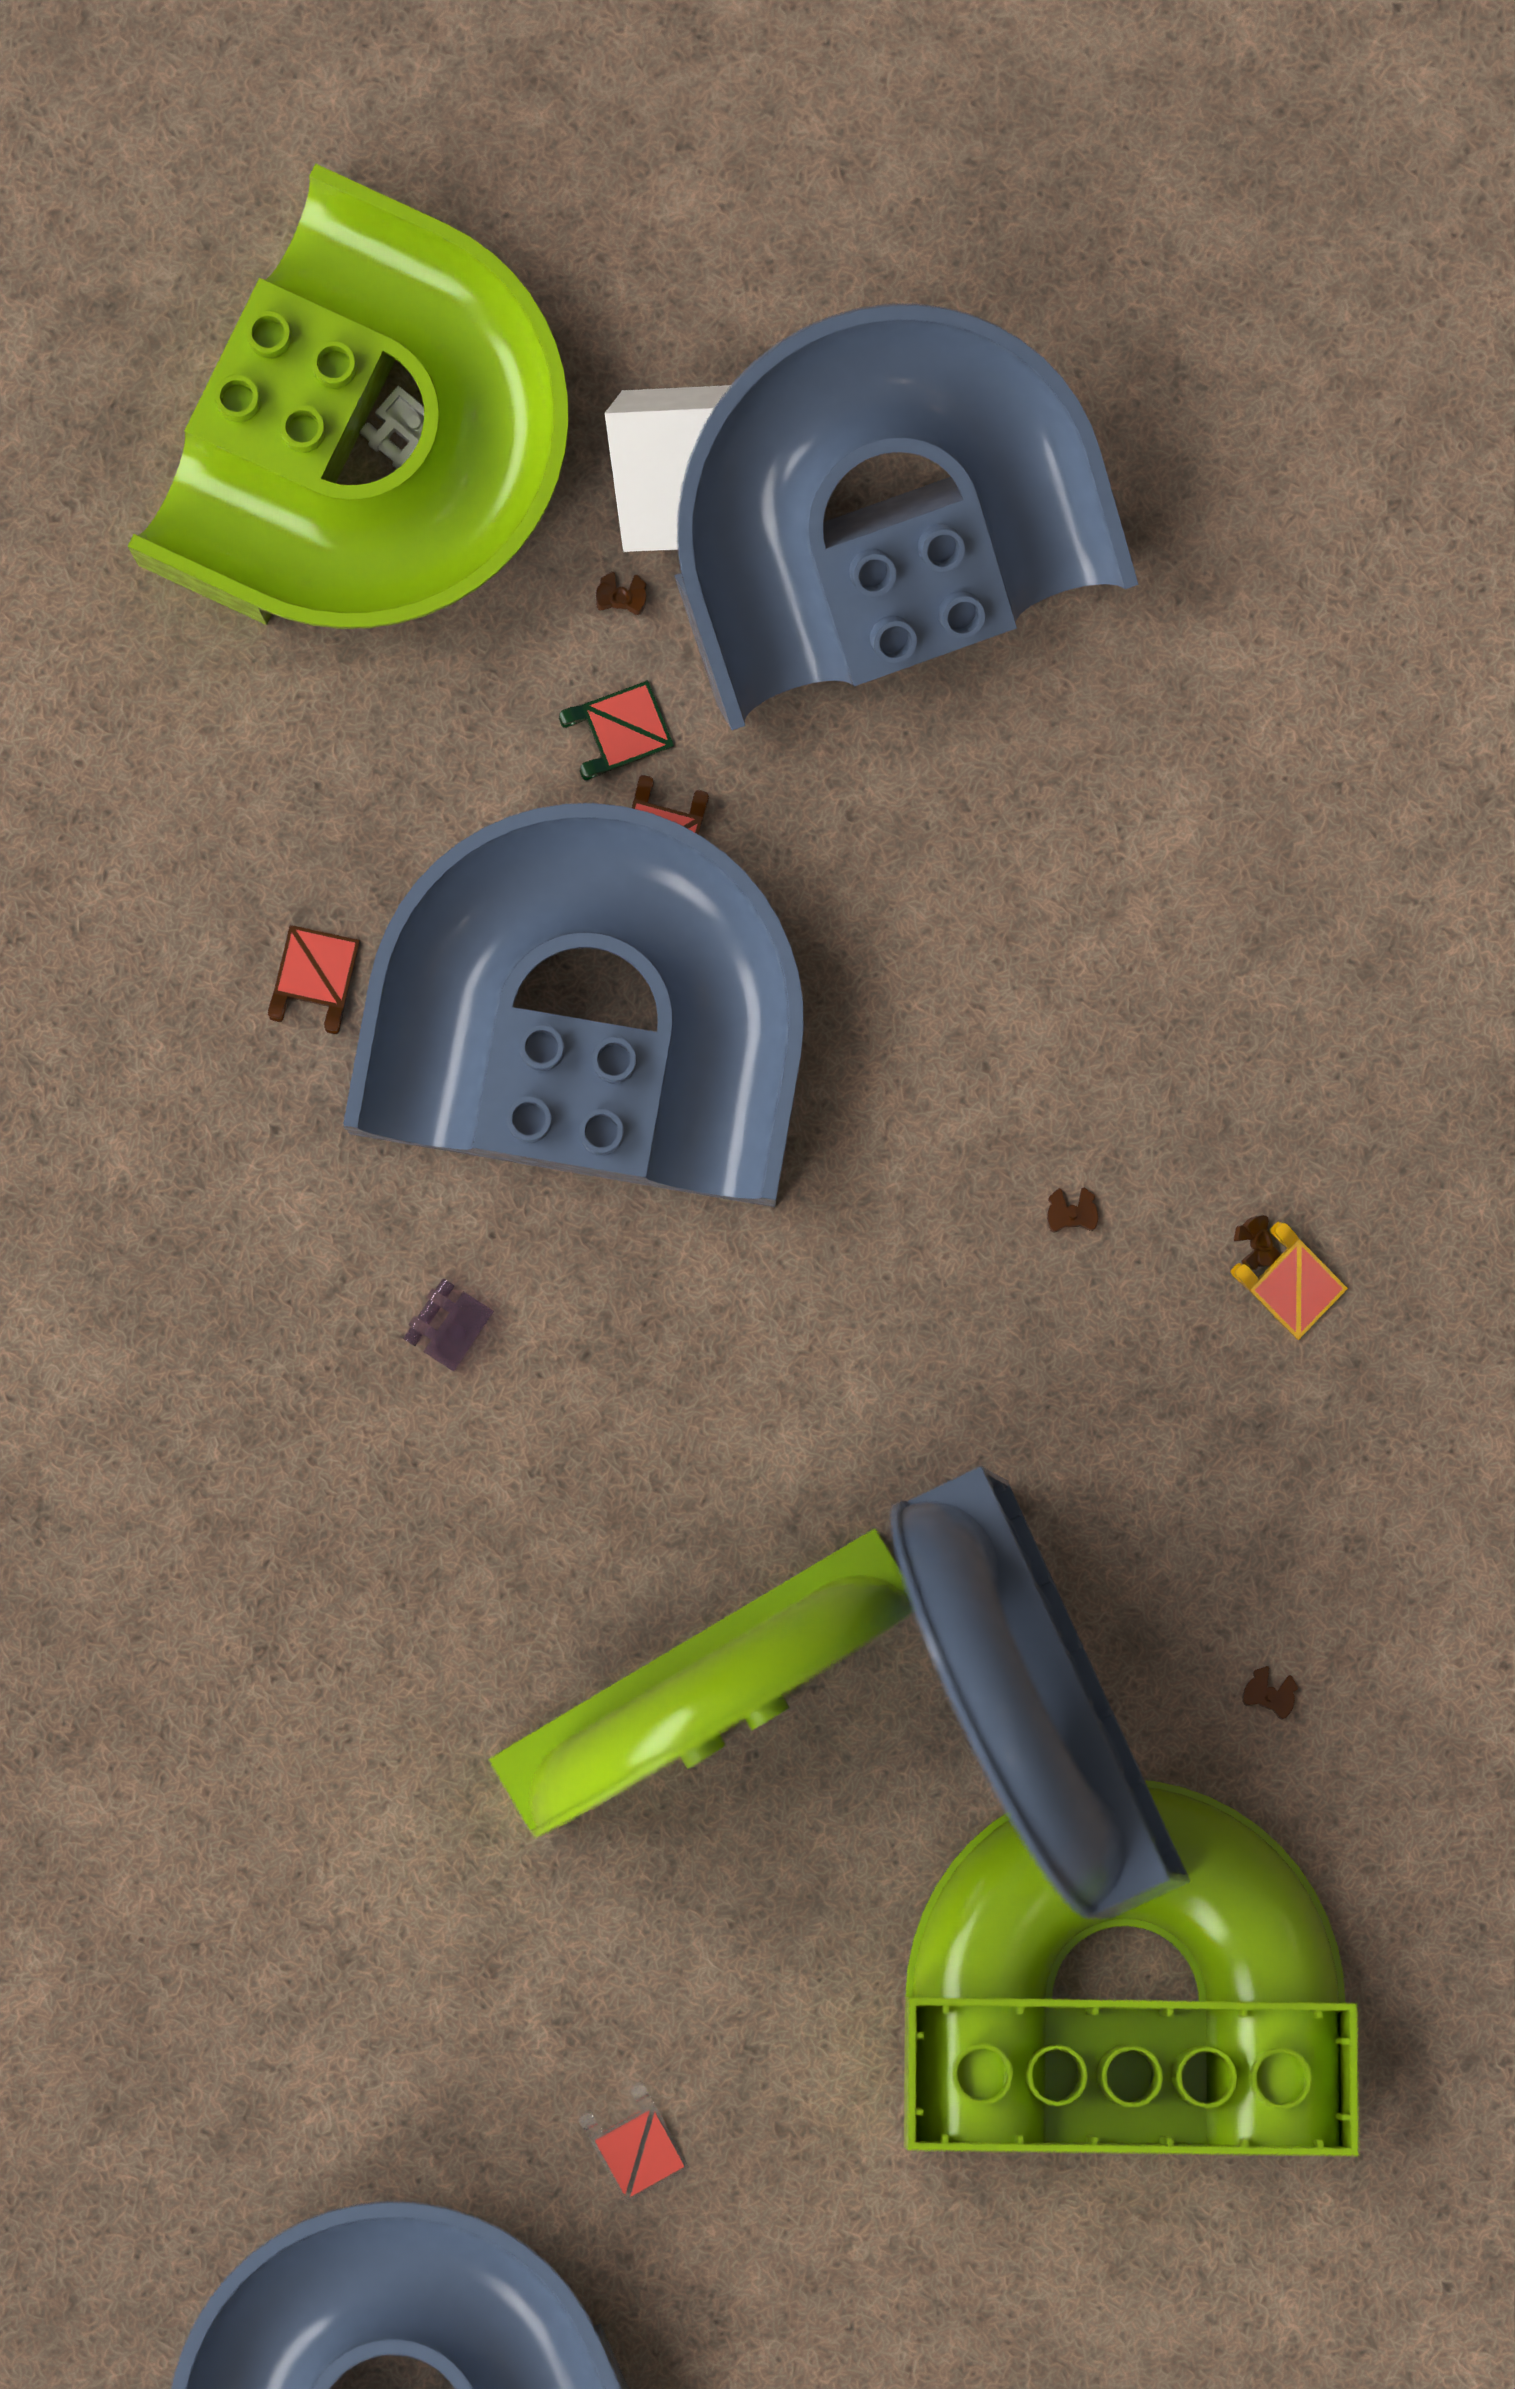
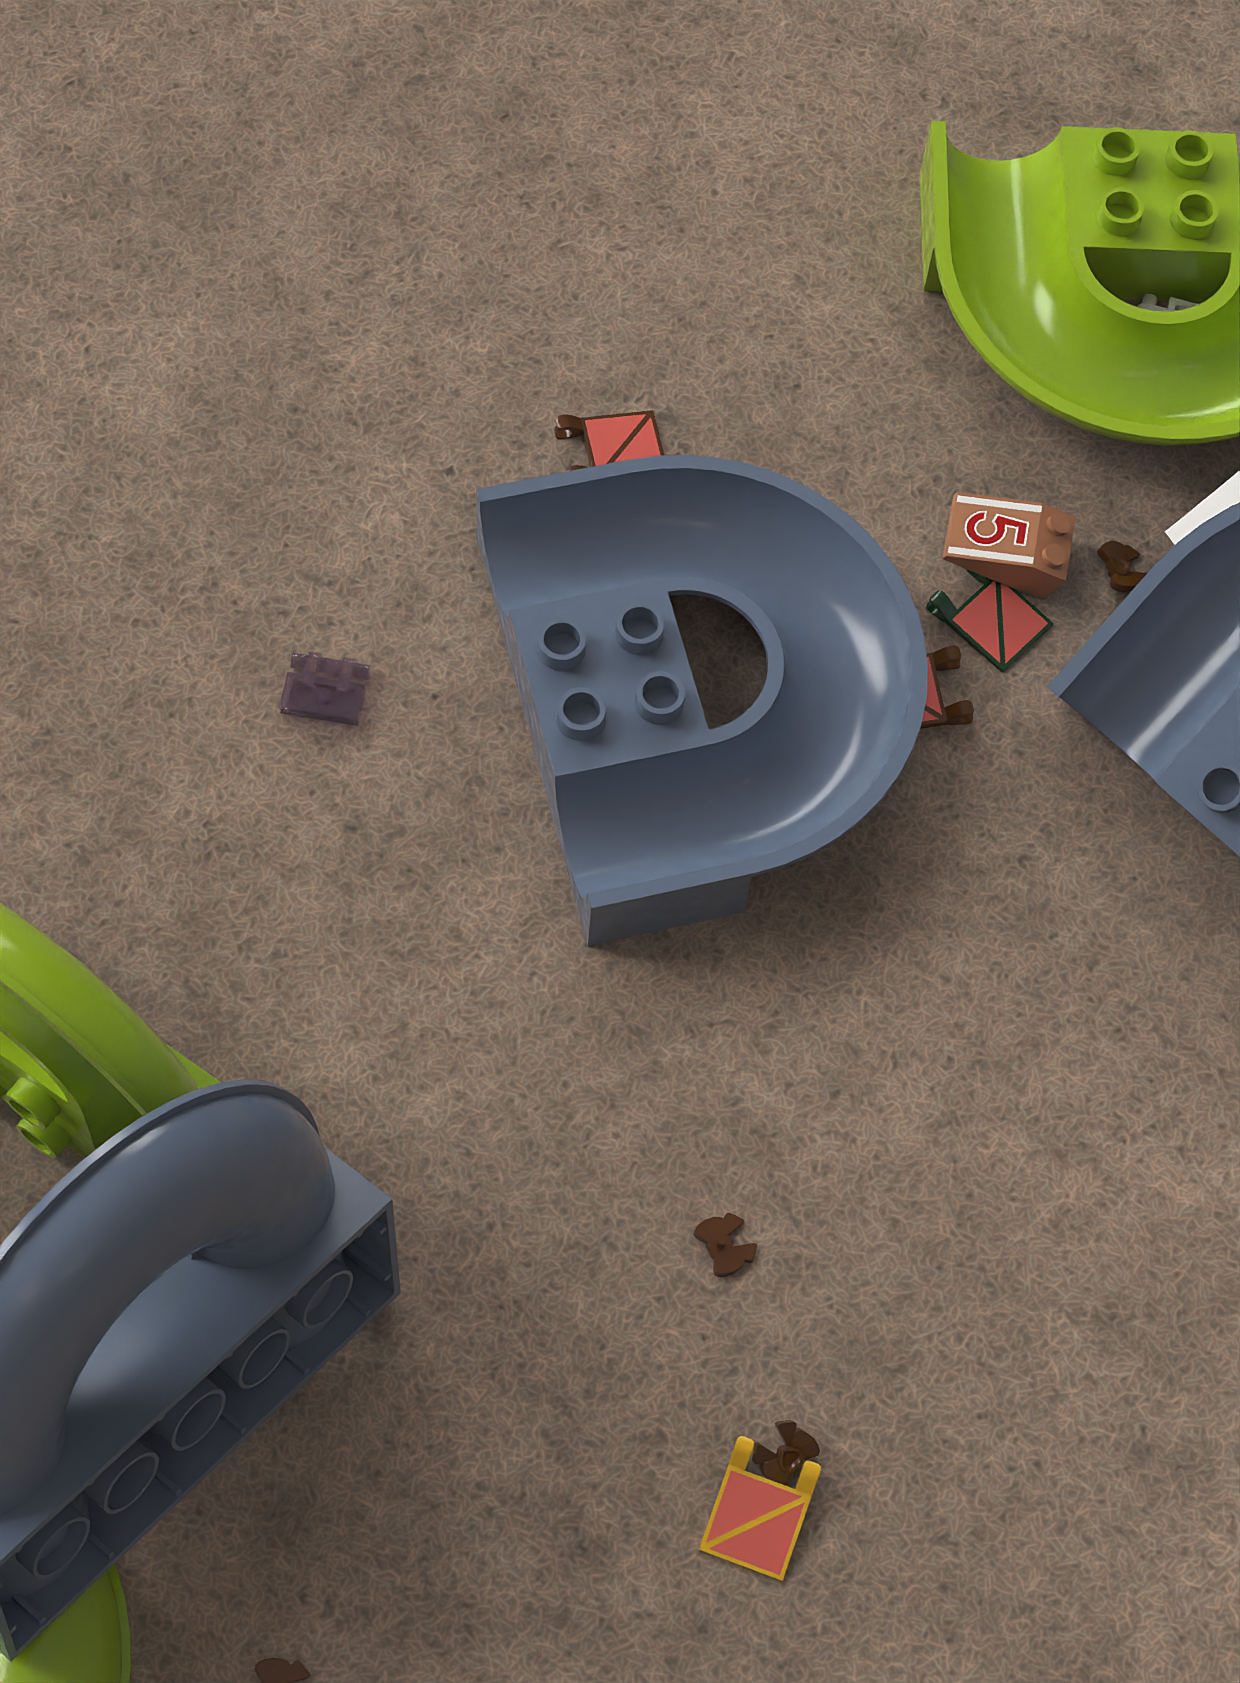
camera: 65 degrees right, 20 degrees down
(564, 683) = (1010, 541): none -> nougat slope

